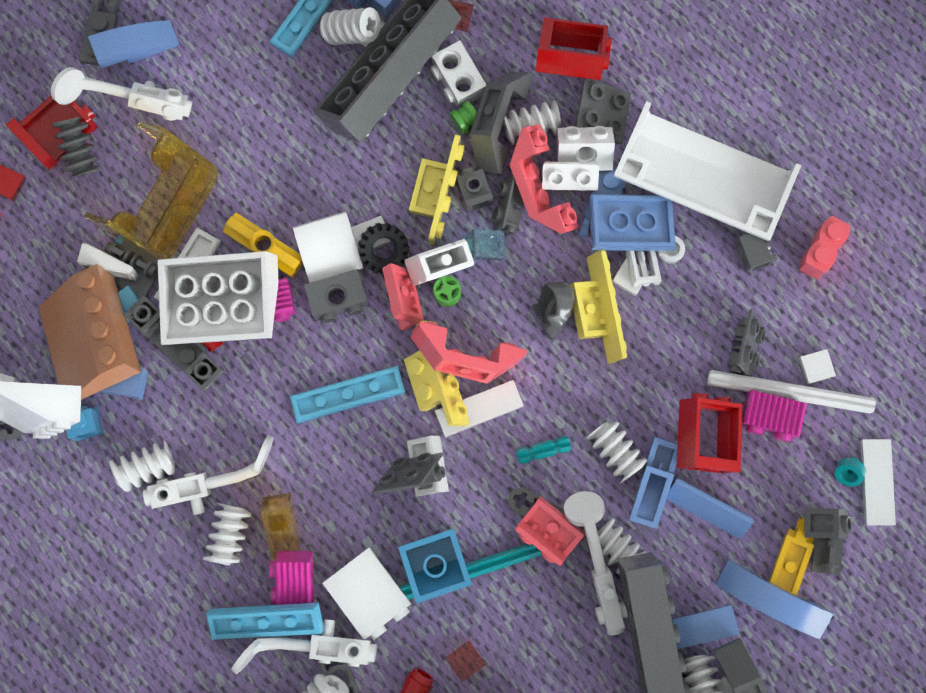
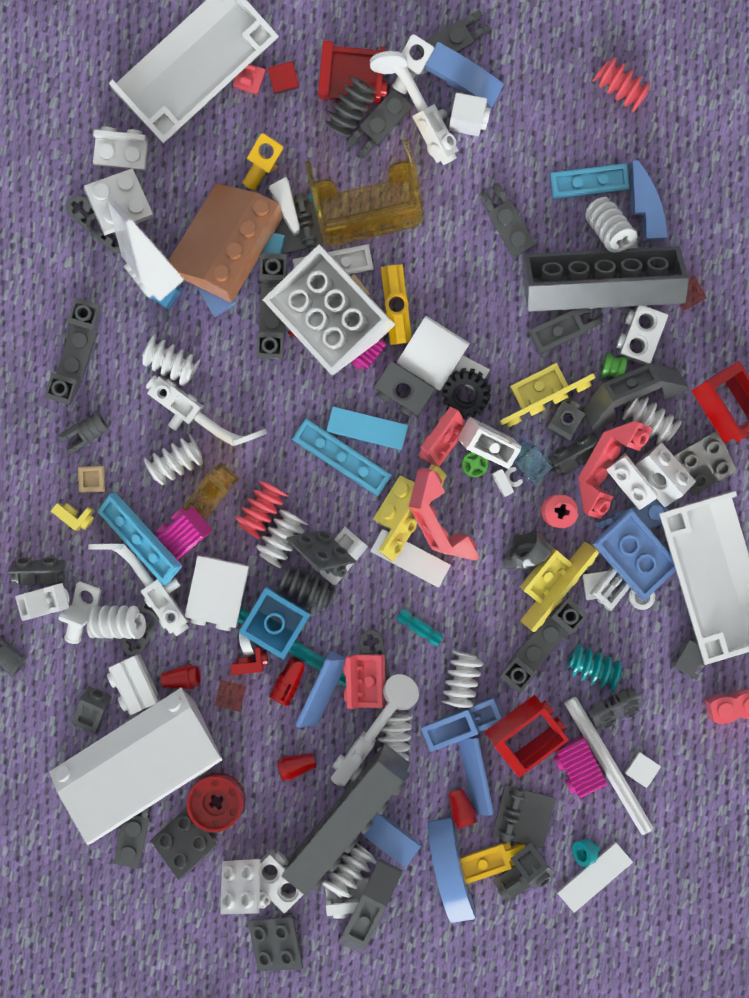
camera: 45 degrees right, 10 degrees up
(55, 255) = (260, 163): none -> yellow bracket
(80, 563) = (76, 353): none -> dark grey slope
(91, 70) = (414, 66): none -> white bracket
(111, 137) = (381, 121): none -> dark grey hinge
(137, 585) = (87, 429): none -> dark grey hinge
(166, 61) = (469, 114): none -> white brick
(181, 620) = (91, 479): none -> tan tile
(192, 665) = (68, 513): none -> light yellow bracket
(278, 105) = (508, 223): none -> dark grey hinge
(329, 496) = (260, 508): none -> coral piece
(342, 353) = (367, 428): none -> medium azure tile
(369, 503) = (277, 542): none -> white piece
(399, 132) = (561, 329): none -> dark grey hinge
(430, 515) = (307, 589): none -> dark grey piece
(434, 607) = (247, 645): none -> white tile
(450, 624) = (246, 665): none -> red bracket
(480, 279) = (503, 481): none -> white tile
(495, 600) = (288, 682): none -> red hinge
(527, 576) = (321, 690): none -> medium blue slope
(544, 243) = (565, 503): none -> coral piece
(572, 656) = (295, 765): none -> red cone
(641, 358) = (541, 643): none -> dark grey slope
(698, 332) = (595, 667): none -> teal piece
(727, 544) = (461, 808): none -> red cone
(776, 498) = (523, 816): none -> dark grey hinge

